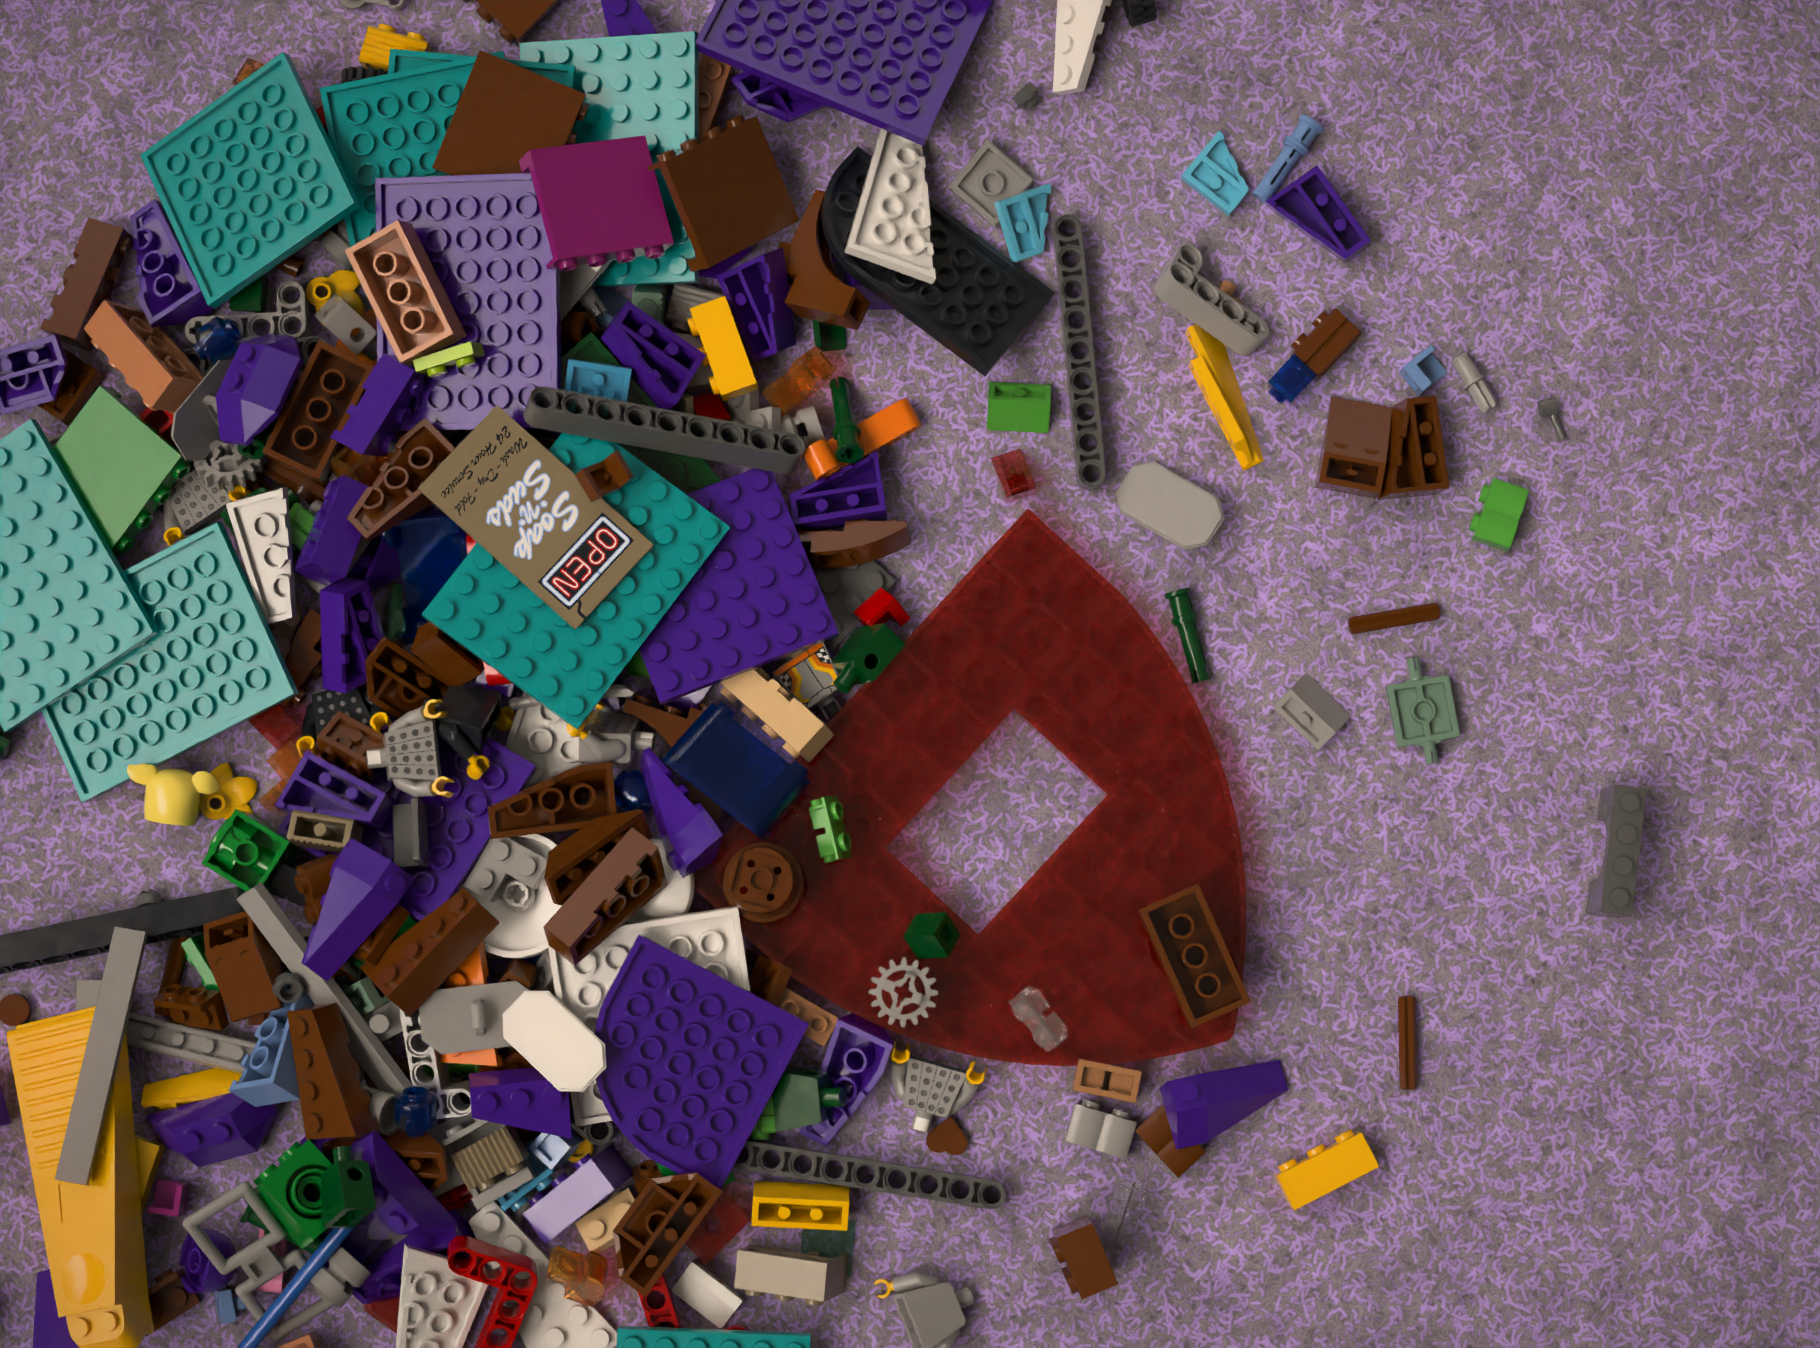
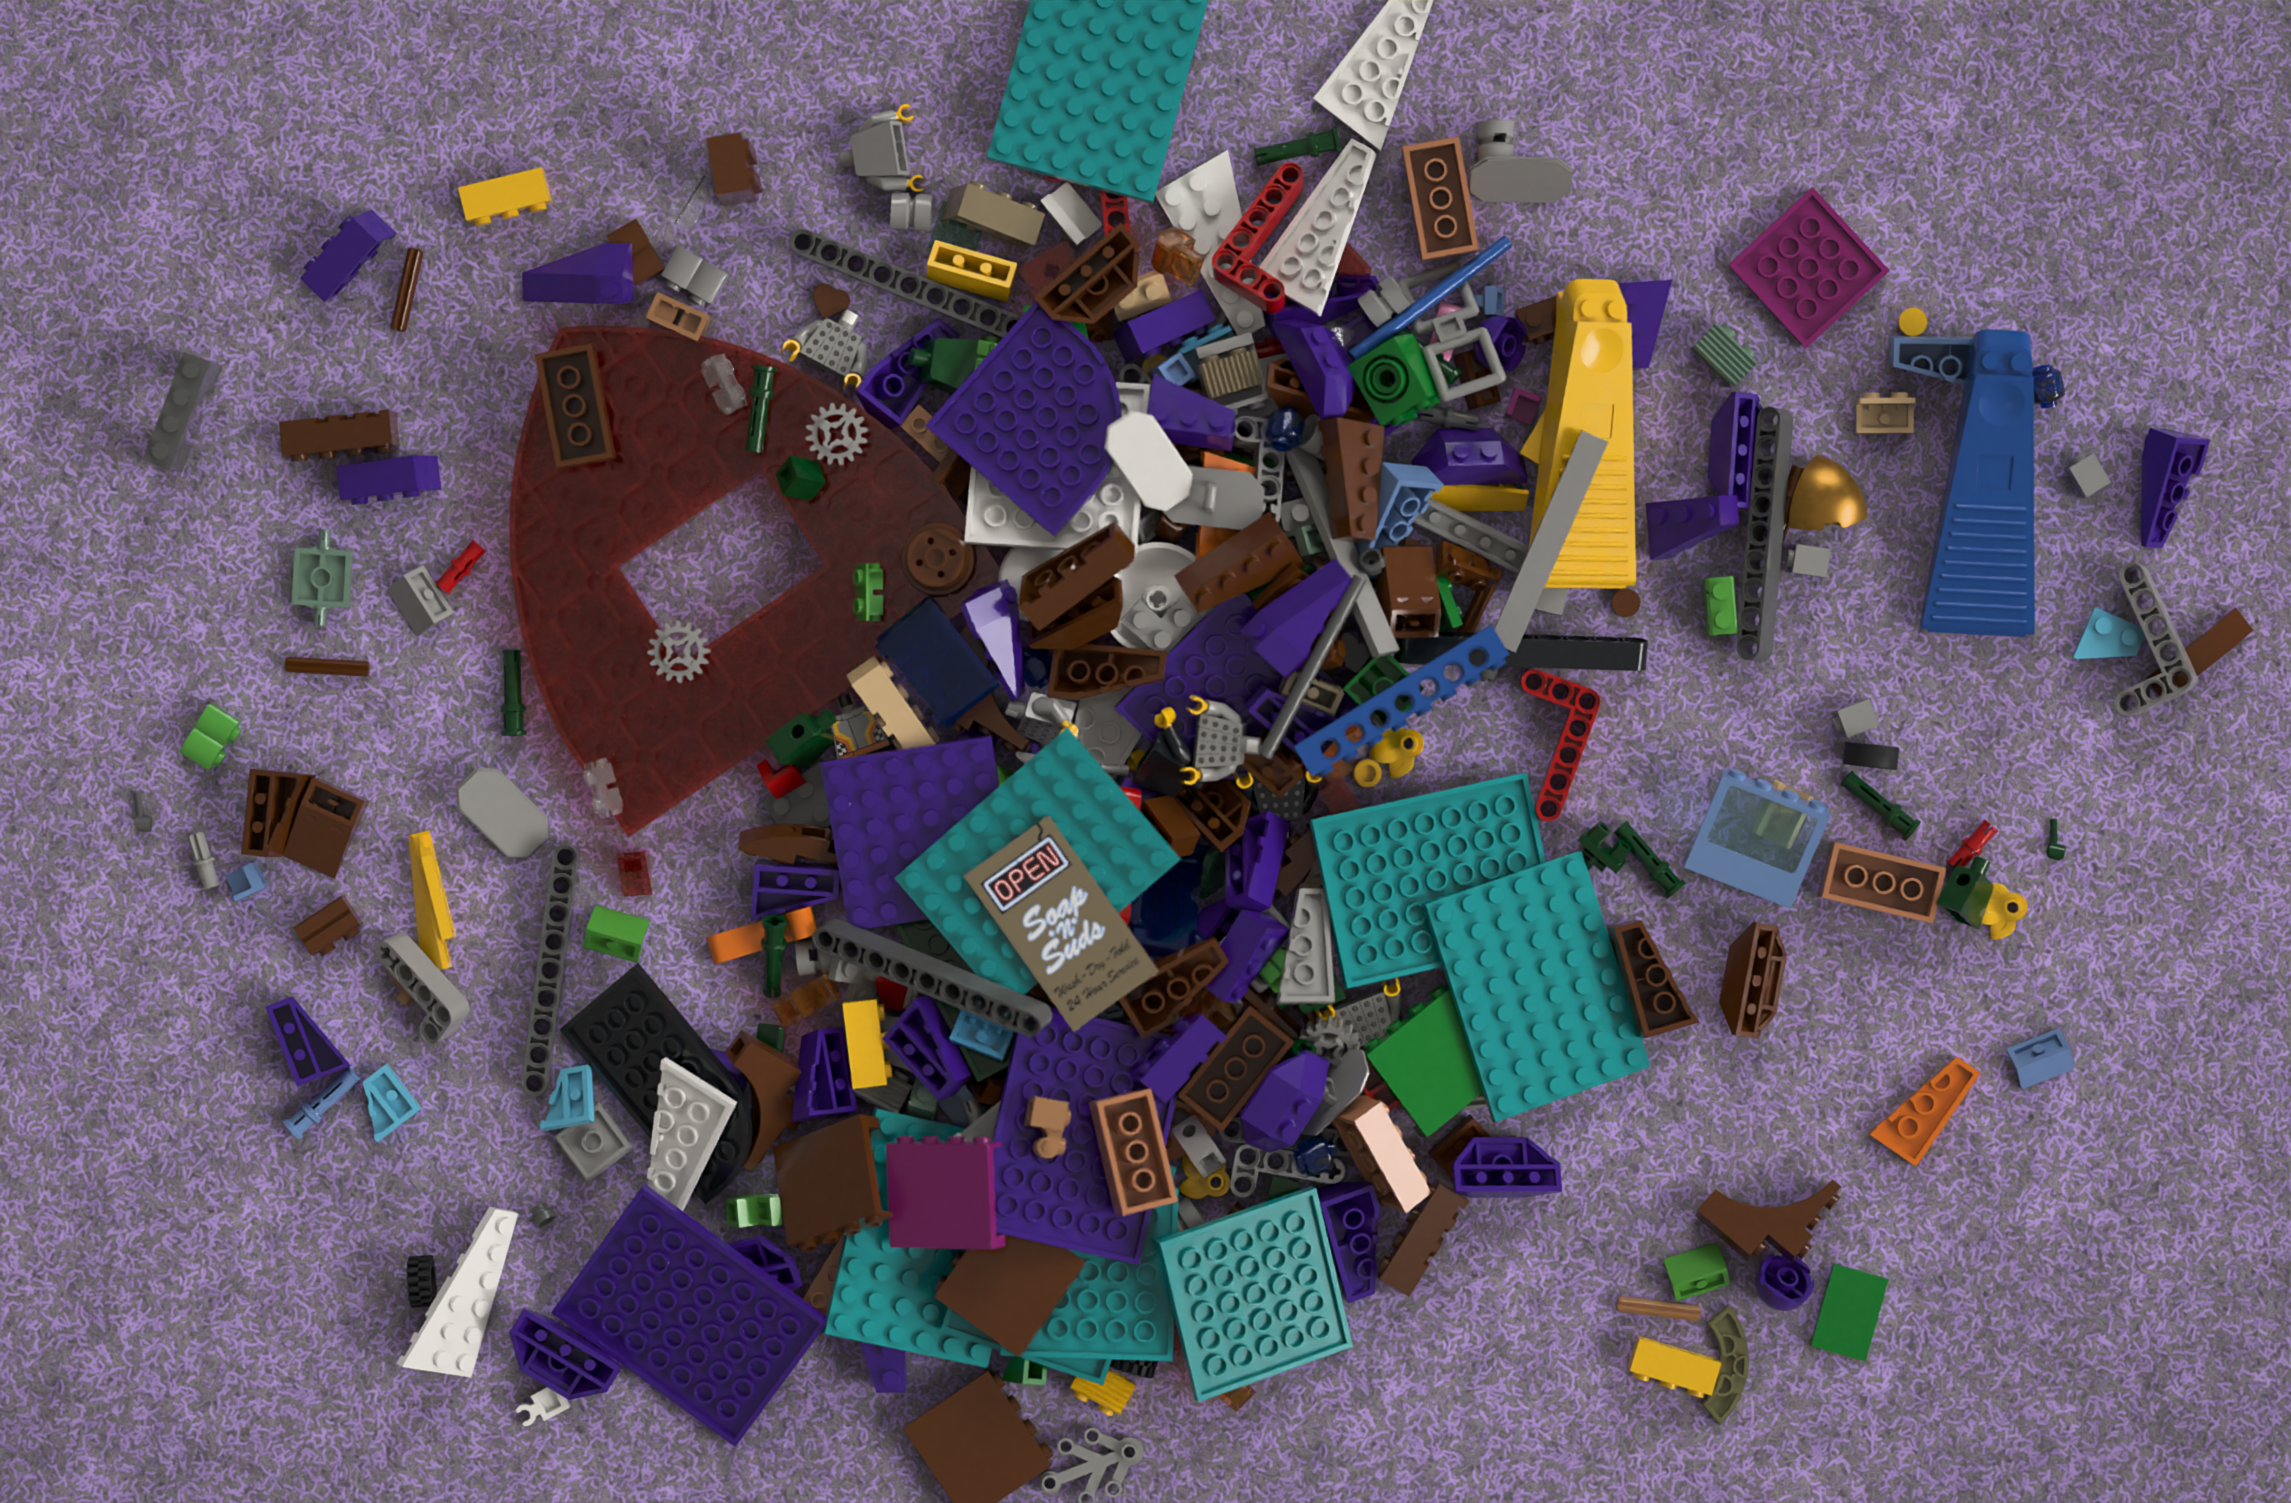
camera: 170 degrees left, 5 degrees up
(48, 847) = (1565, 738): none -> red beam
(168, 907) = (1484, 640): none -> blue brick
(172, 794) = (1441, 759): light yellow piece -> none
(228, 1220) = (1471, 371): none -> reddish brown slope
(243, 1167) = (1450, 418): none -> dark grey pin
(254, 763) = (1367, 773): none -> yellow tile
(325, 856) = (1312, 667): none -> dark grey piece
(346, 1191) = (1354, 372): dark green torso -> none
(411, 835) = (1237, 671): dark grey panel -> none
(460, 355) = (1120, 1082): lime plate -> none
(476, 41) = (1025, 1372): none -> green brick
(499, 306) = (1050, 1118): none -> medium nougat brick
(604, 477) = (991, 944): reddish brown bracket -> none
(804, 151) = (753, 1210): none -> bright green brick
(881, 1255) = (911, 211): none -> light grey wheel
(995, 1018) = (761, 393): none -> dark green pin
(1006, 709) = (669, 642): none -> light grey gear
(1062, 541) = (604, 799): none -> clear hinge
(1277, 757) = (460, 566): none -> red pin
(1290, 380) = (367, 899): clear blue bracket -> none
(1377, 833) = (388, 478): none -> dark purple wedge
(1442, 868) = (339, 434): none -> reddish brown wedge
(1482, 1065) = (345, 254): none -> dark purple wedge

